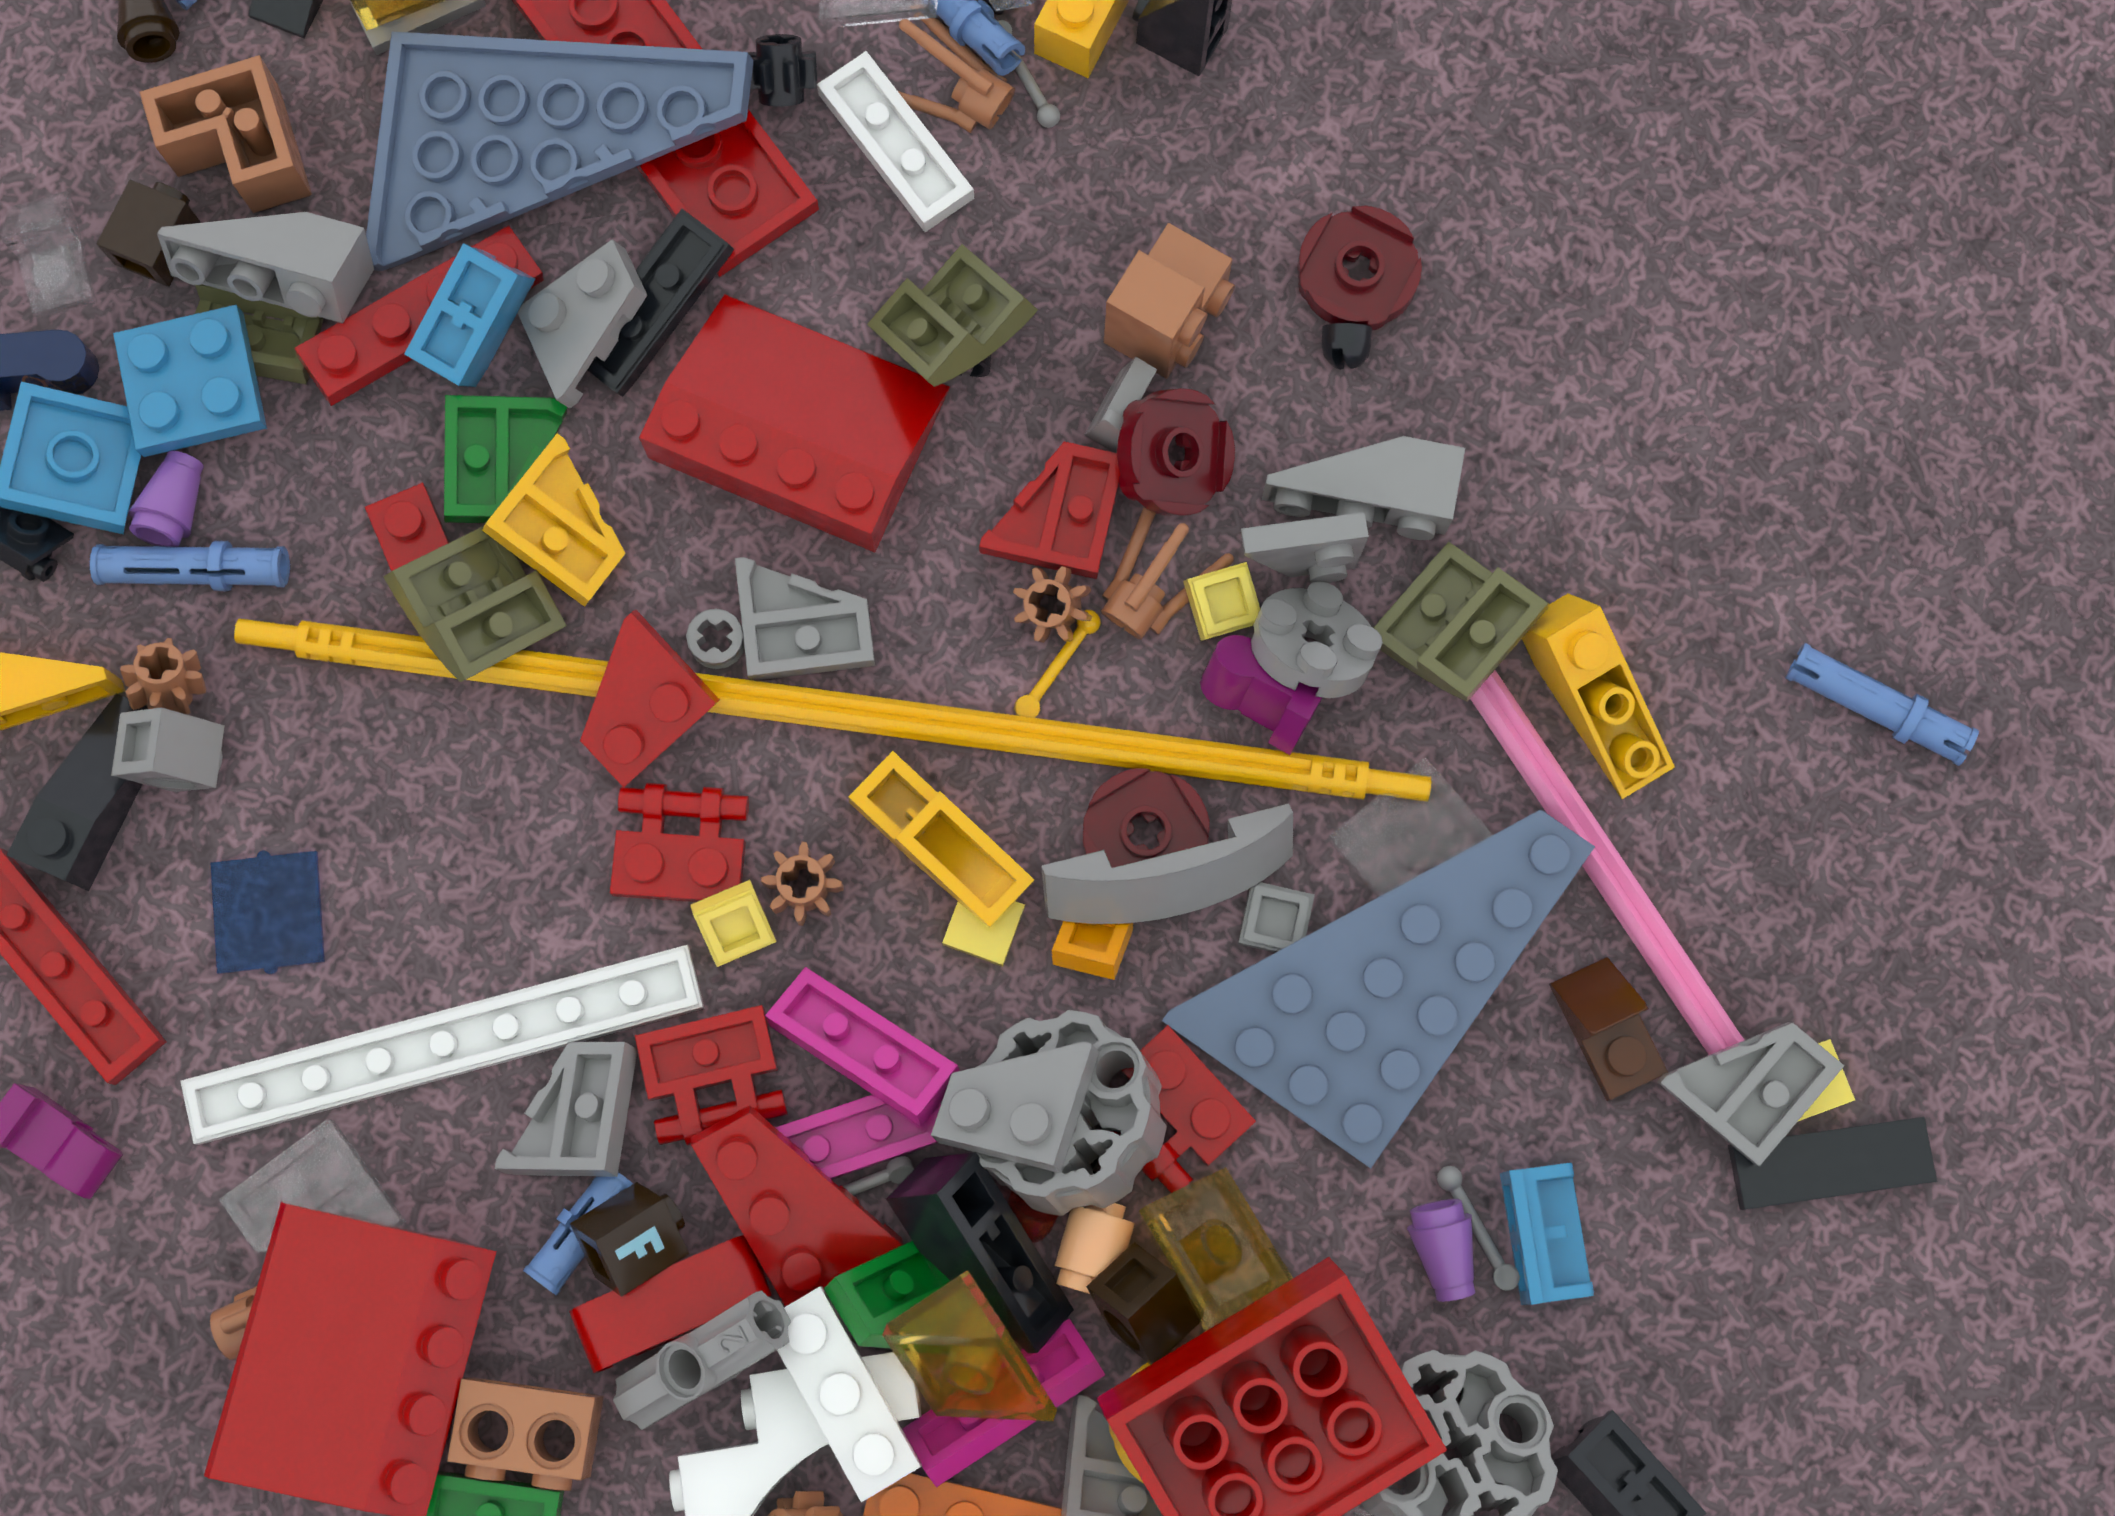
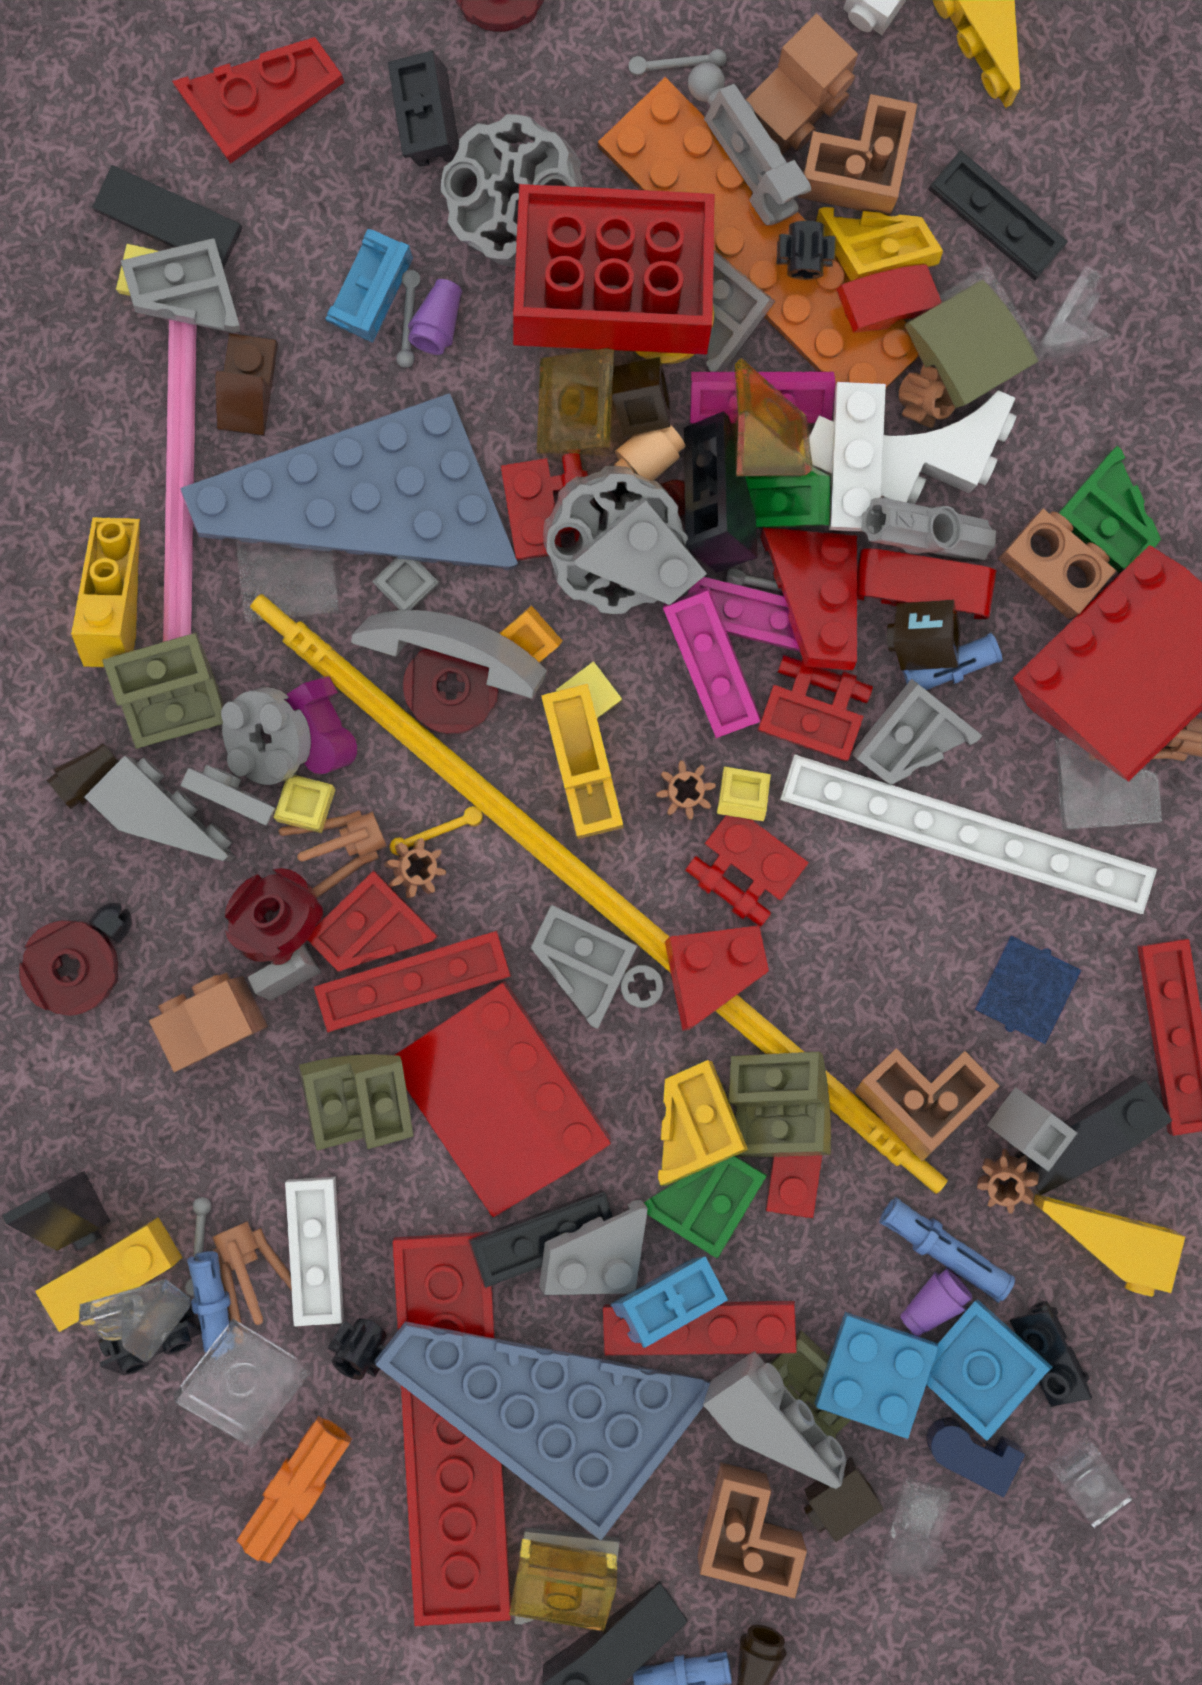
camera: 145 degrees left, 10 degrees up
(299, 692) = (921, 1110): none -> nougat brick
(975, 485) = (412, 981): none -> red plate
(1486, 475) = (80, 775): none -> dark brown cone
(1828, 1378) = (259, 97): none -> red wing

